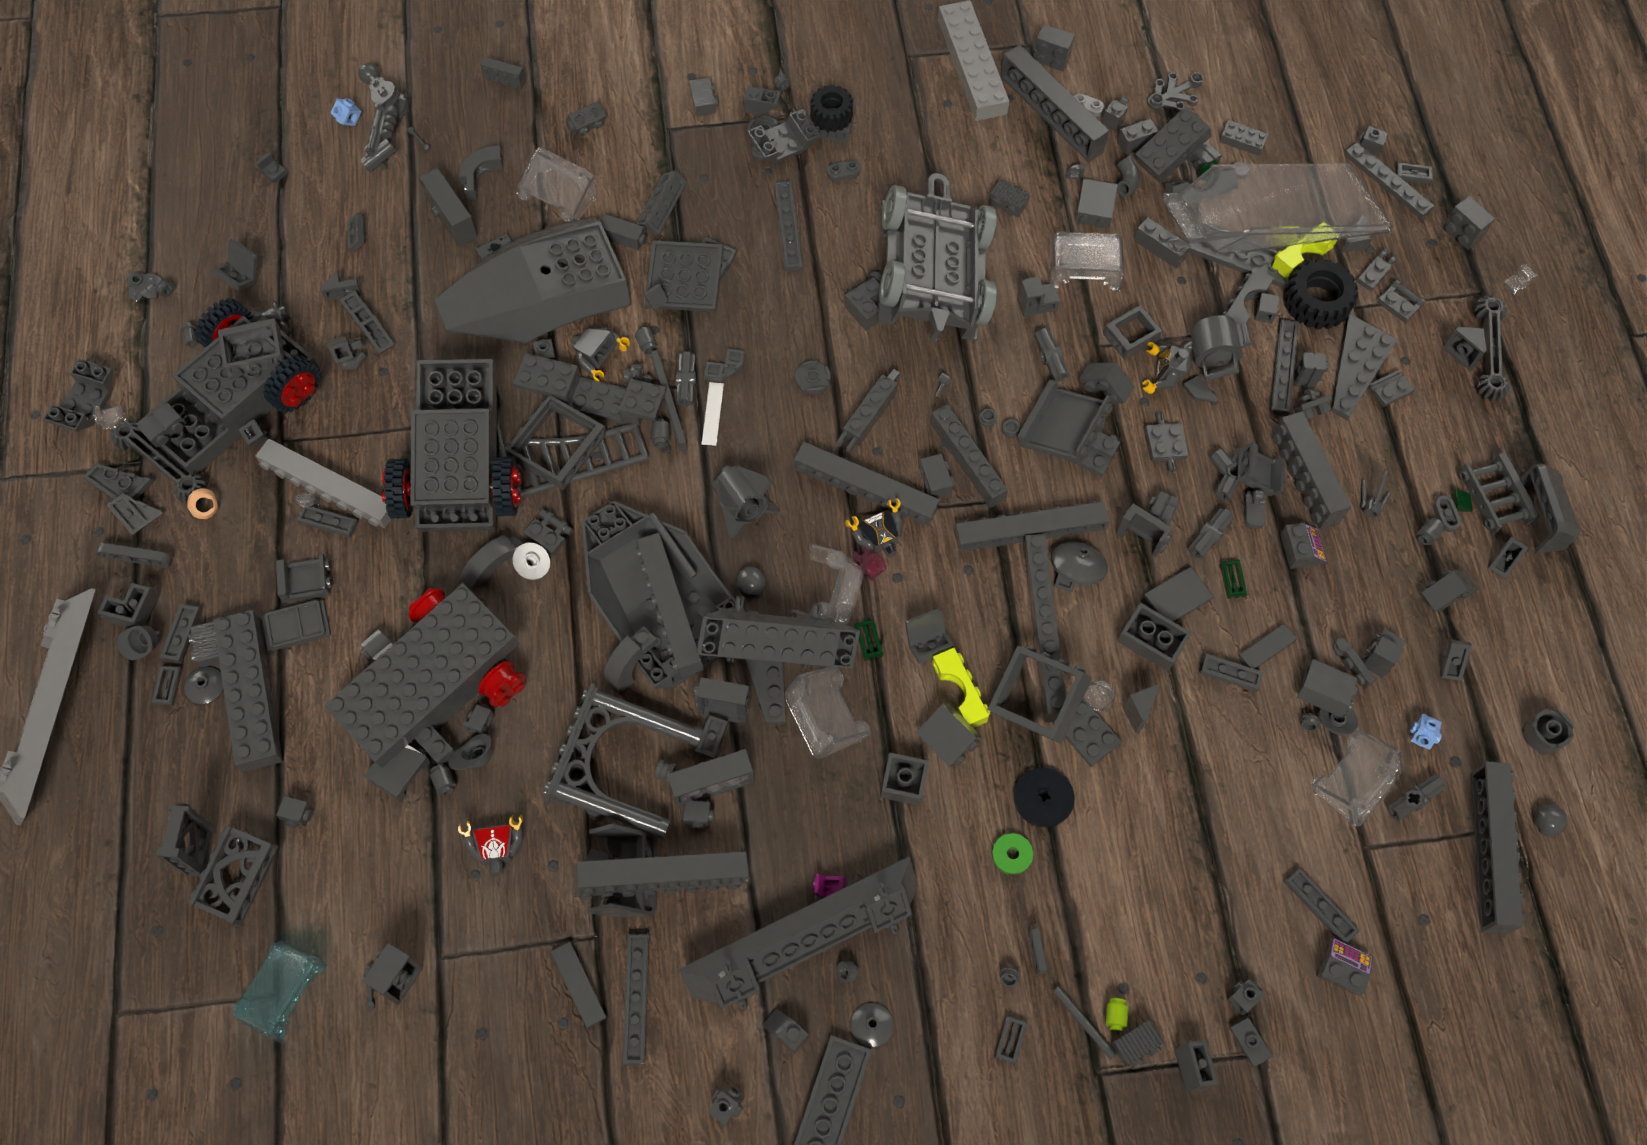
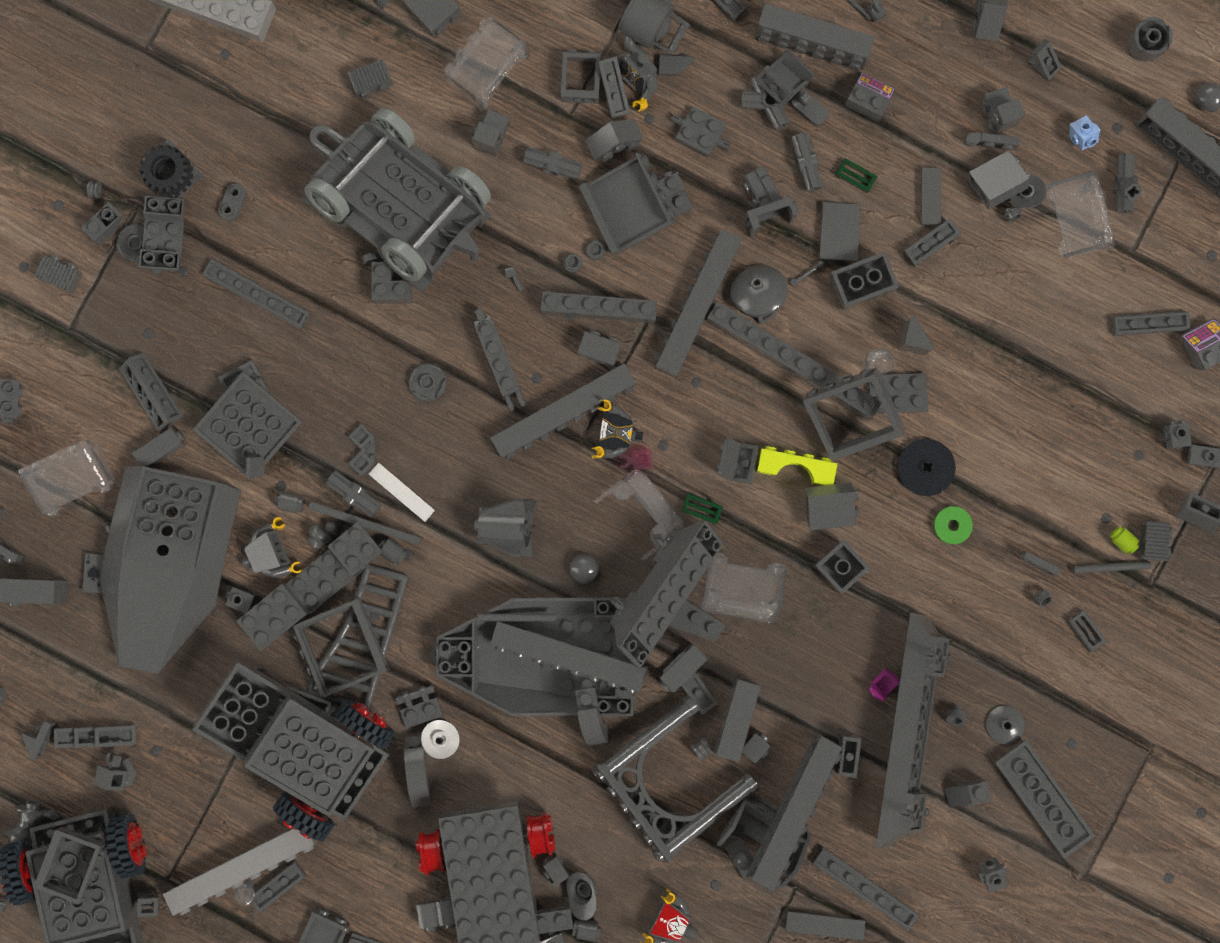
camera: 55 degrees left, 20 degrees up
(745, 896) = (850, 753): none -> dark grey brick
(1109, 589) = (794, 282): none -> dark grey hinge
(1145, 356) = (613, 87): none -> dark grey plate

